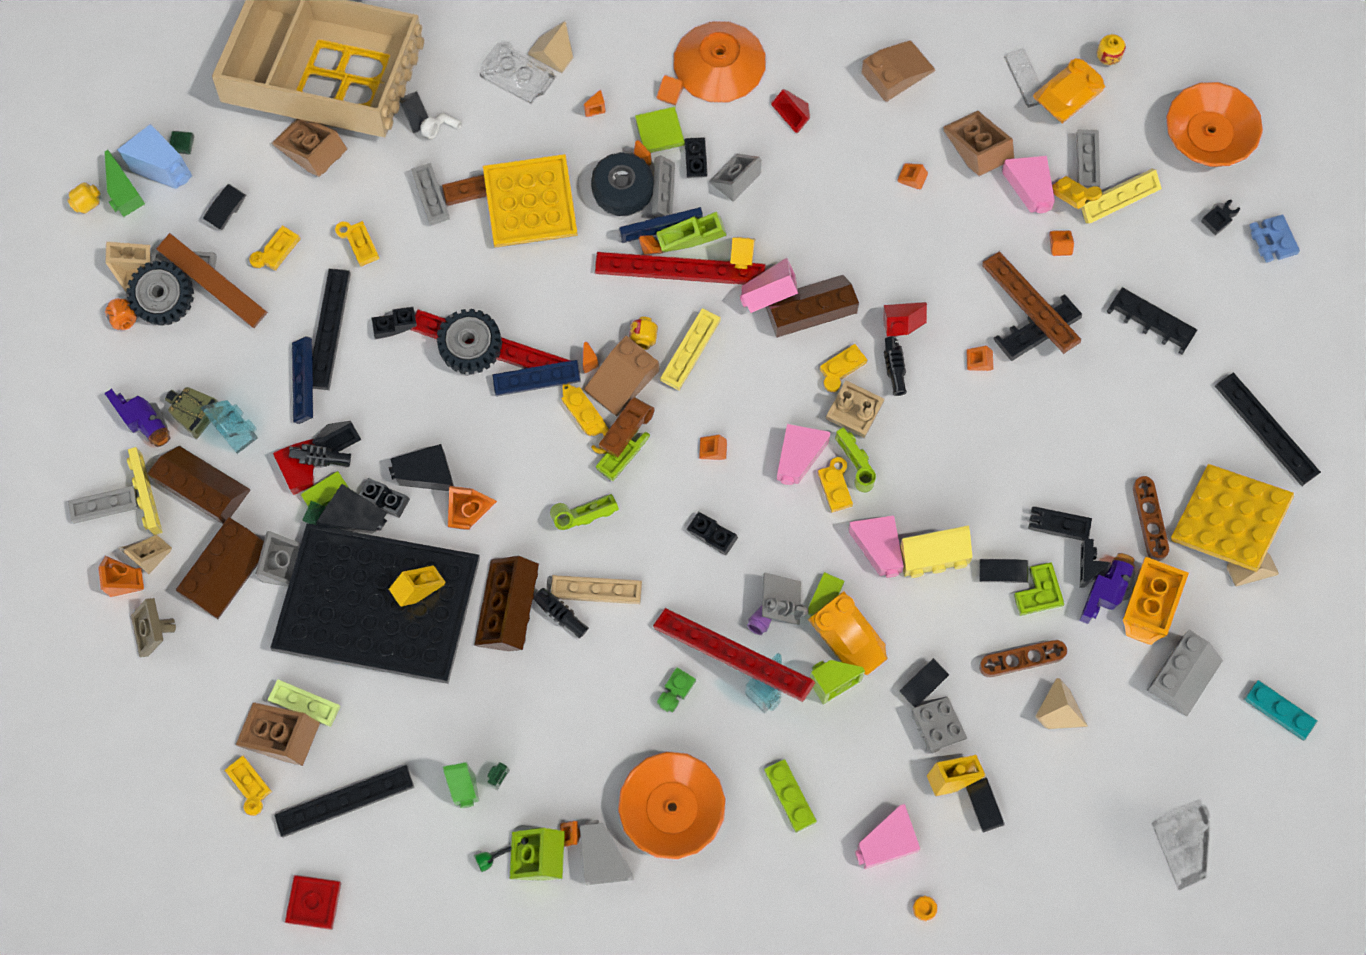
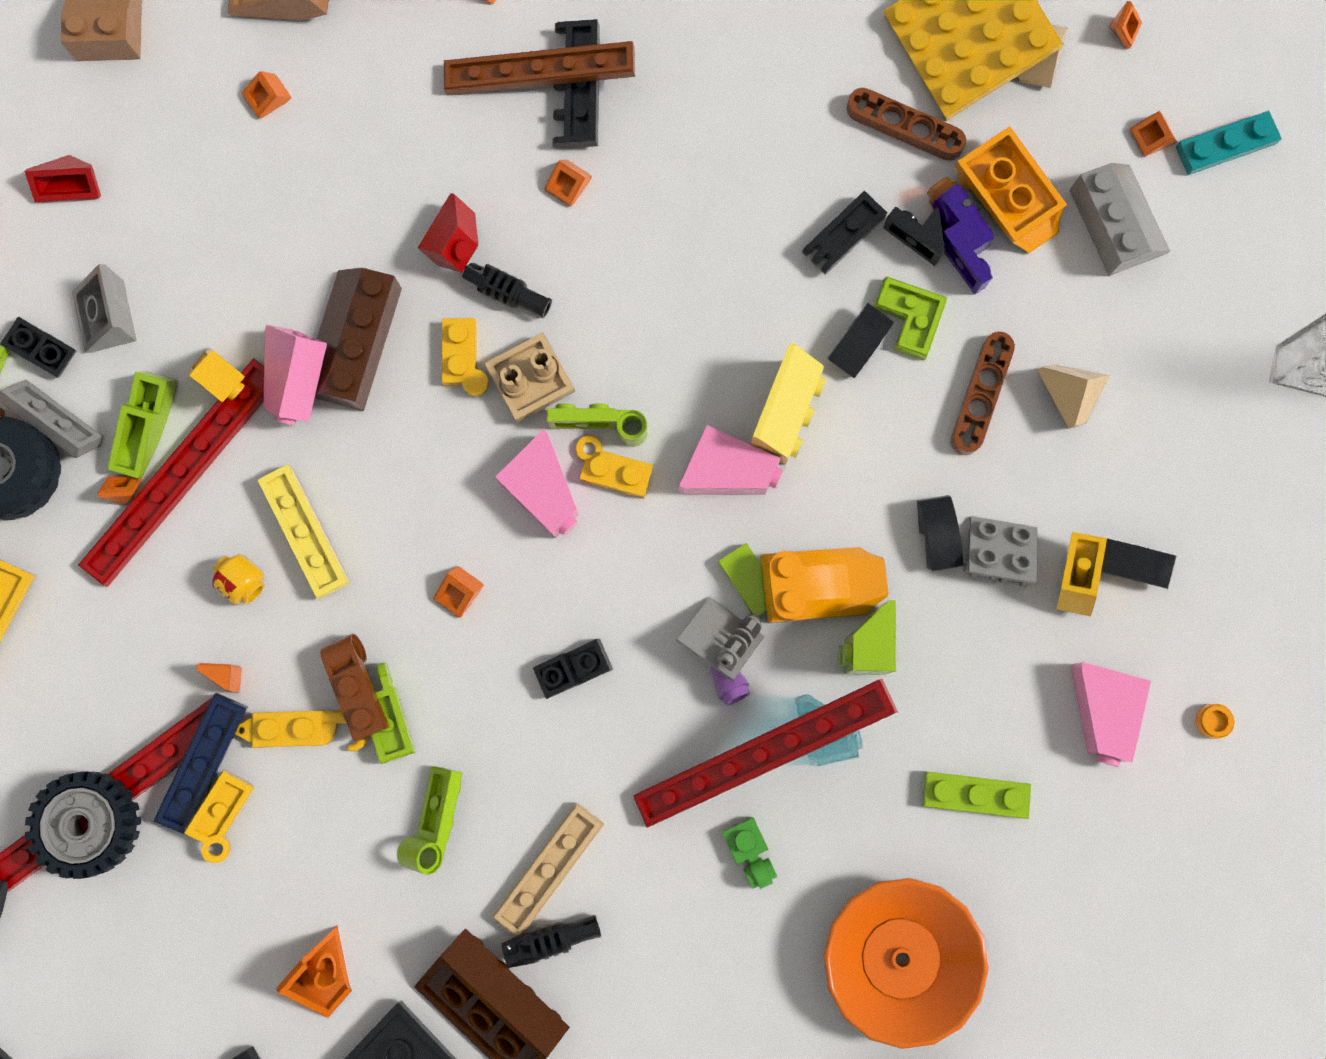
camera: 60 degrees left, 10 degrees up
(422, 469) = (223, 1002): black slope -> none
(516, 403) = (218, 813): none -> yellow hinge
(622, 376) = (278, 646): medium nougat slope -> none
(650, 227) = (94, 470): dark blue tile -> none
(1253, 663) = (1153, 134): none -> orange slope
(1307, 606) = (1126, 24): none -> orange slope

